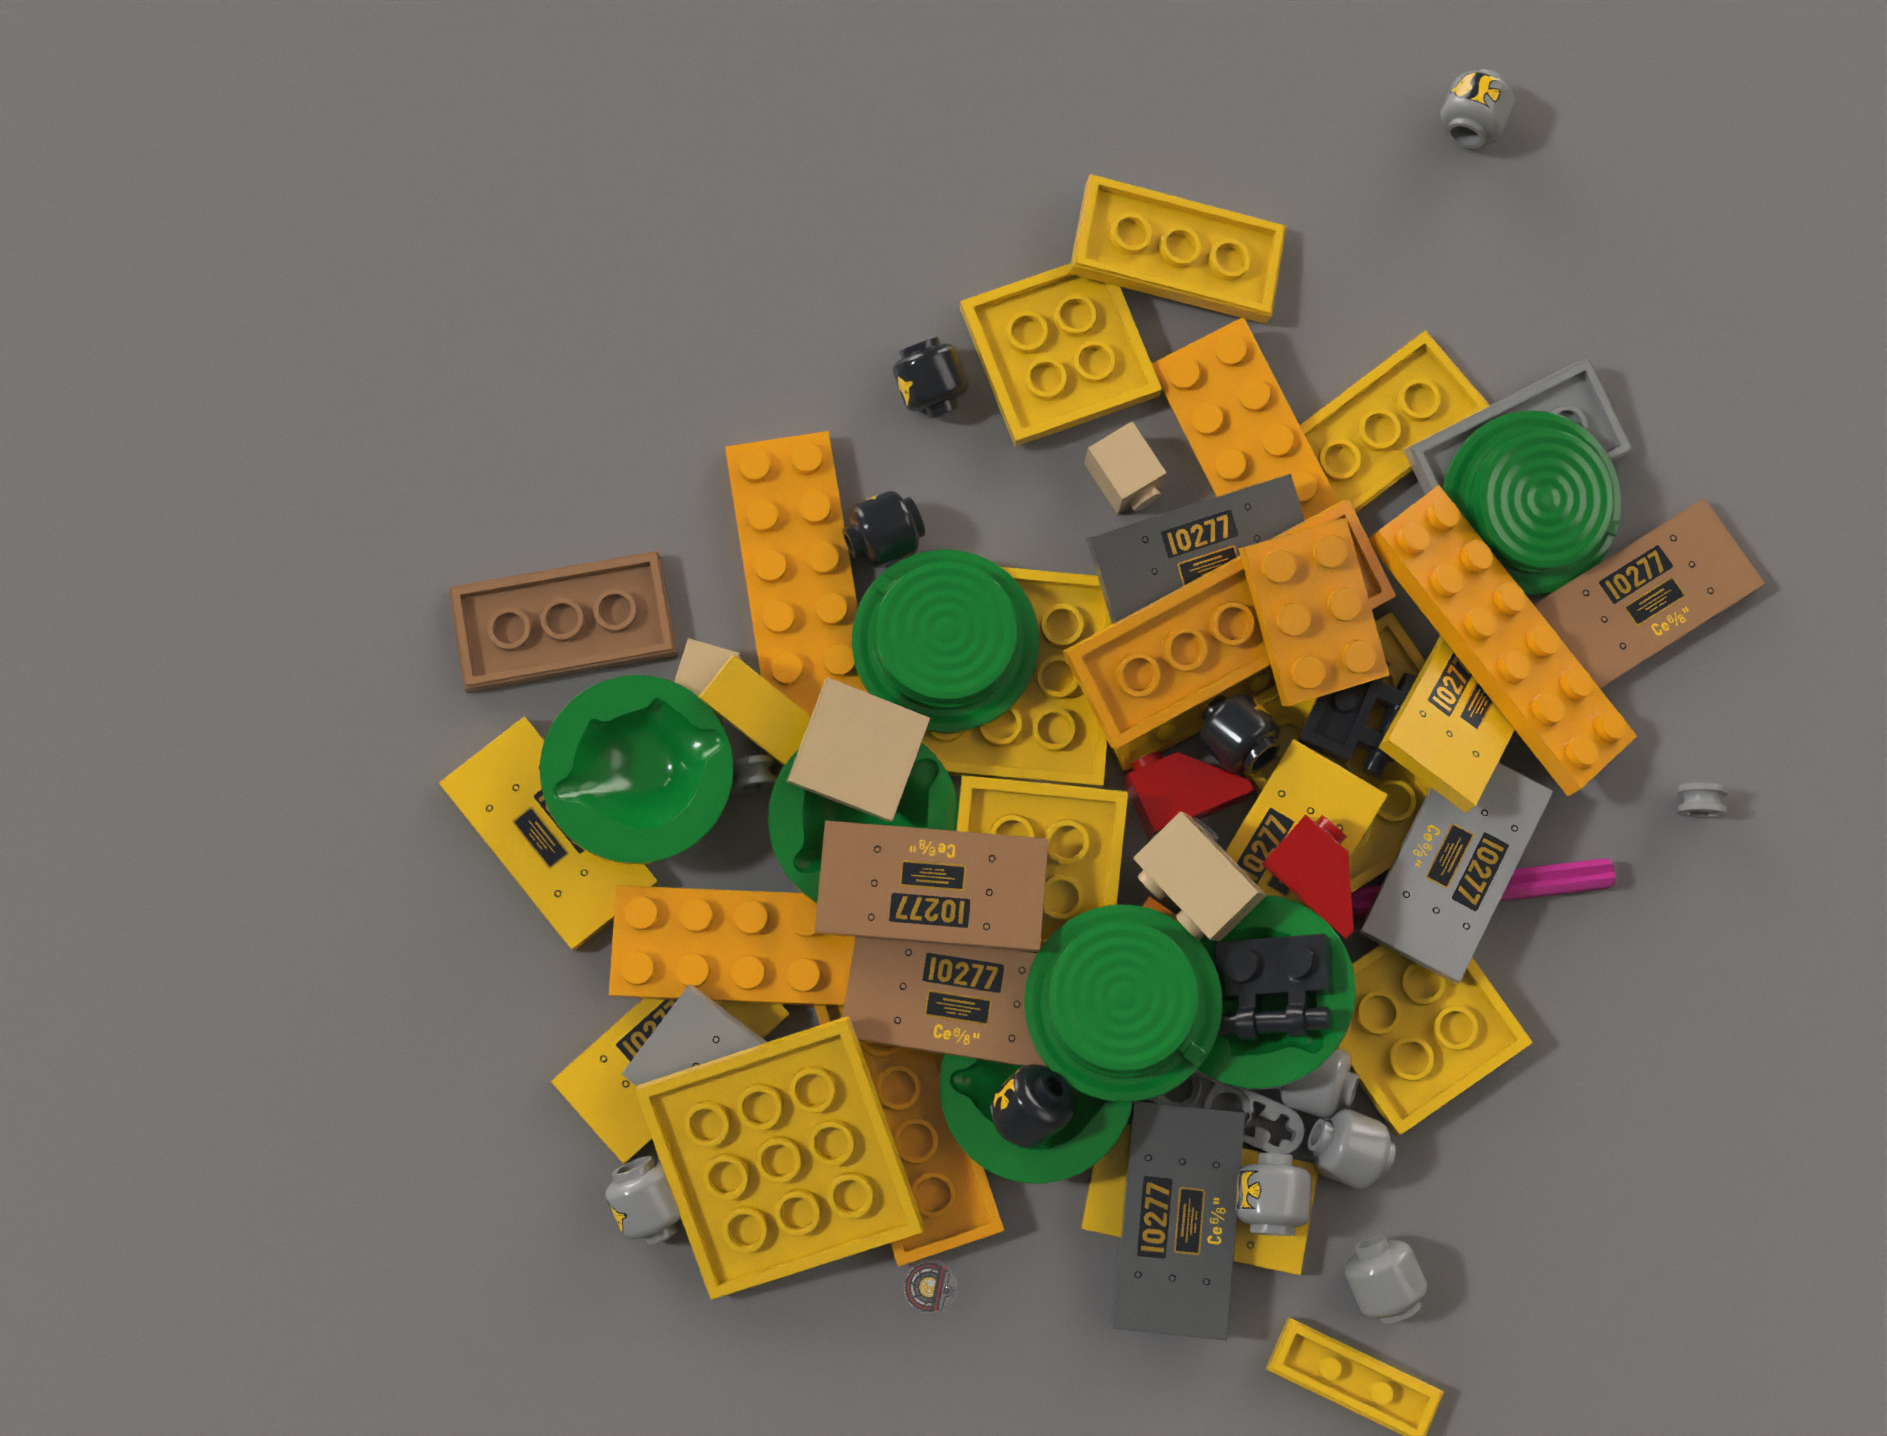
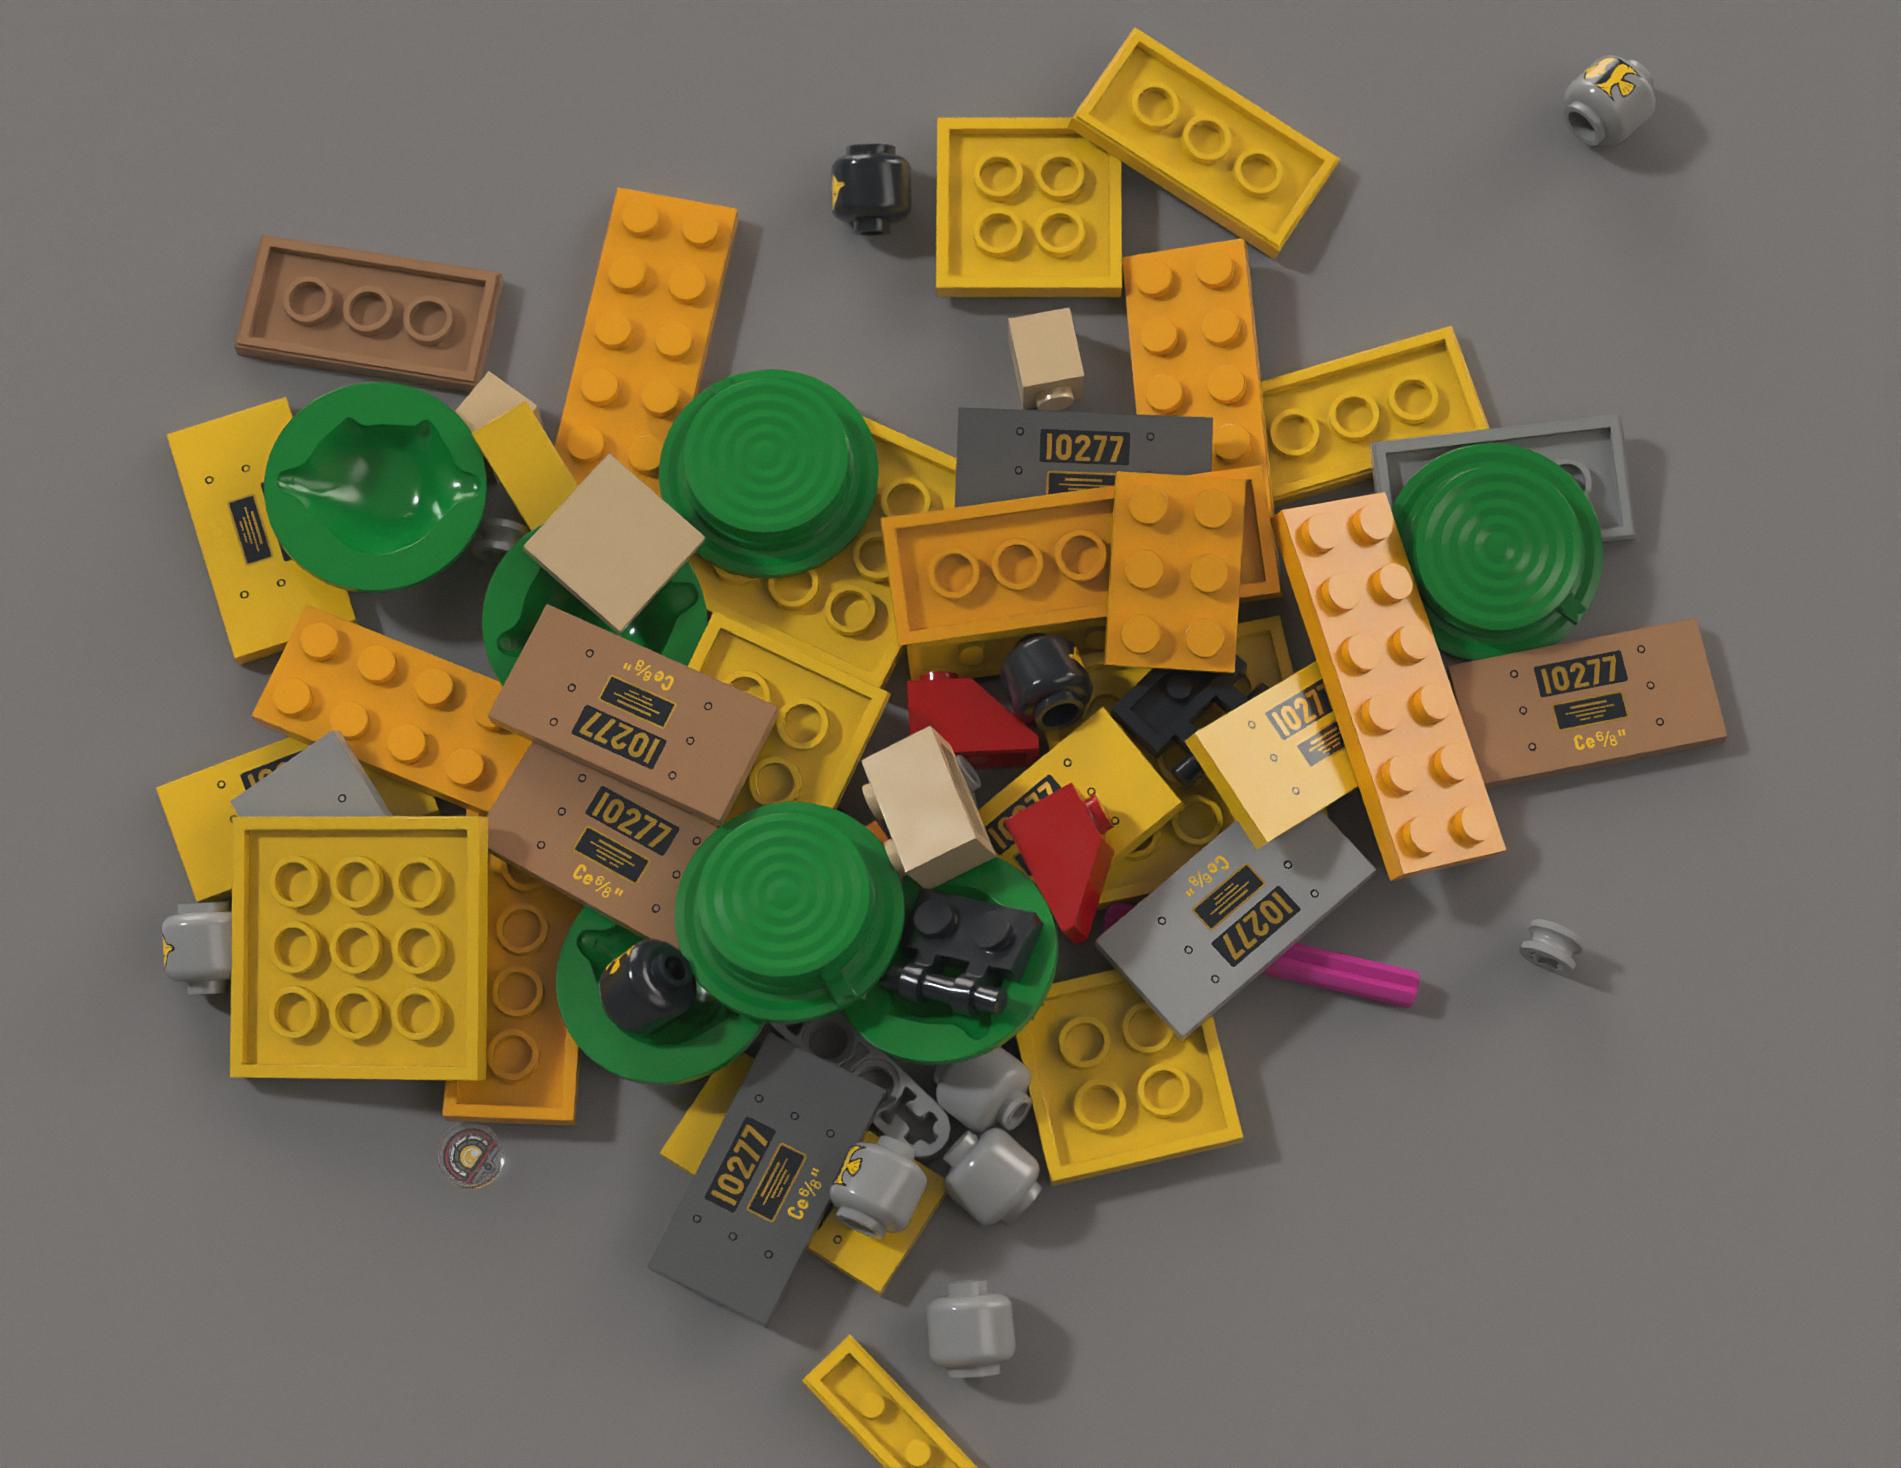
camera: 30 degrees right, 5 degrees down
(884, 529) = (750, 331): black head -> none

